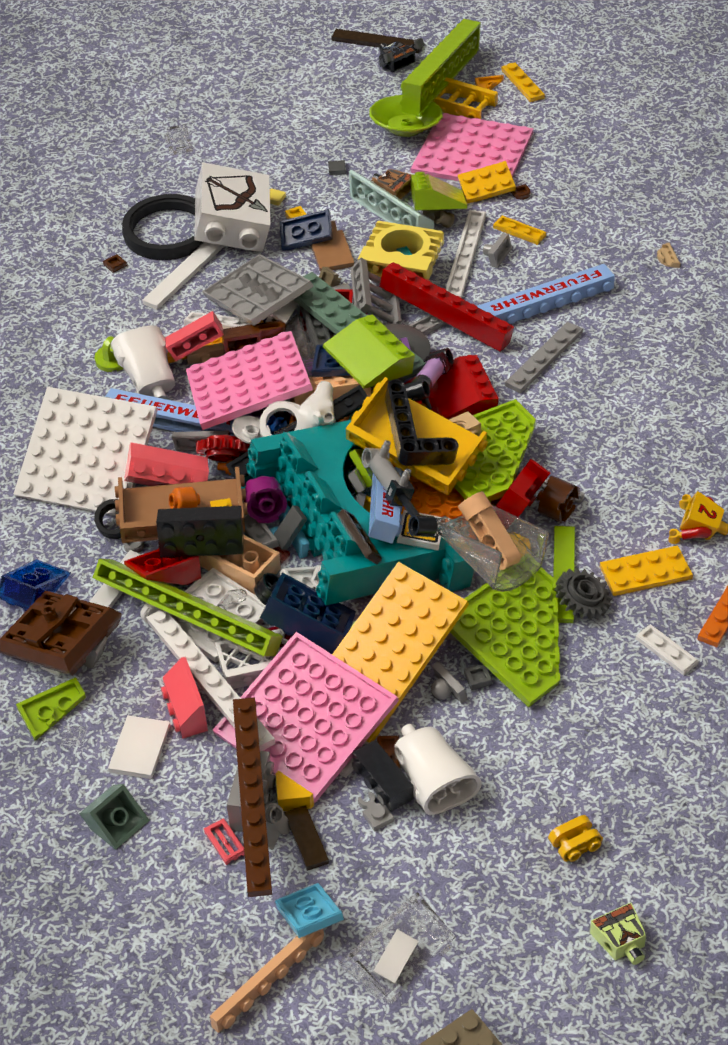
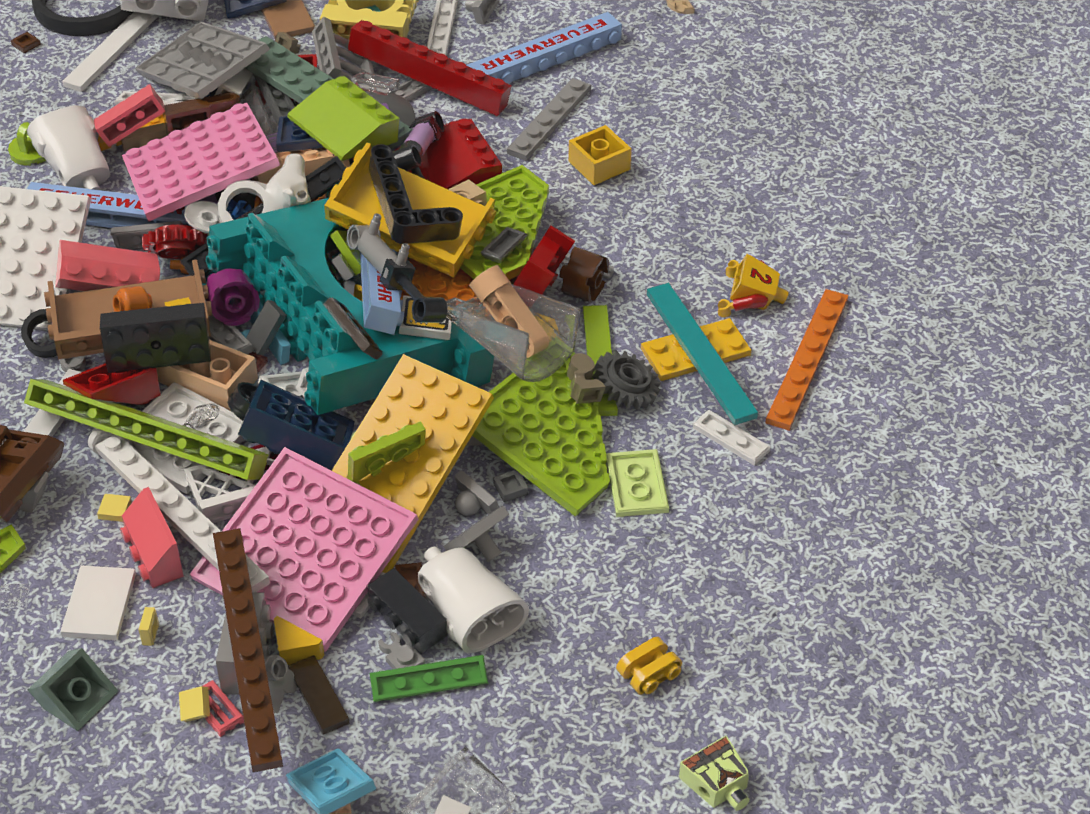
camera: 10 degrees left, 0 degrees up
(157, 669) = (113, 507): none -> light yellow tile
(177, 770) = (148, 626): none -> light yellow tile
(207, 836) = (194, 704): none -> light yellow tile
(368, 645) = (392, 447): none -> lime wing
(395, 832) = (428, 678): none -> bright green tile
(399, 318) = (376, 83): none -> clear piece
(447, 716) = (479, 534): none -> light grey tile
(491, 470) = (503, 245): none -> dark grey tile
(545, 598) = (582, 387): none -> dark tan leg
(583, 393) = (599, 155): none -> yellow brick
(583, 682) = (637, 483): none -> yellowish green tile
(649, 576) = (702, 354): none -> teal tile

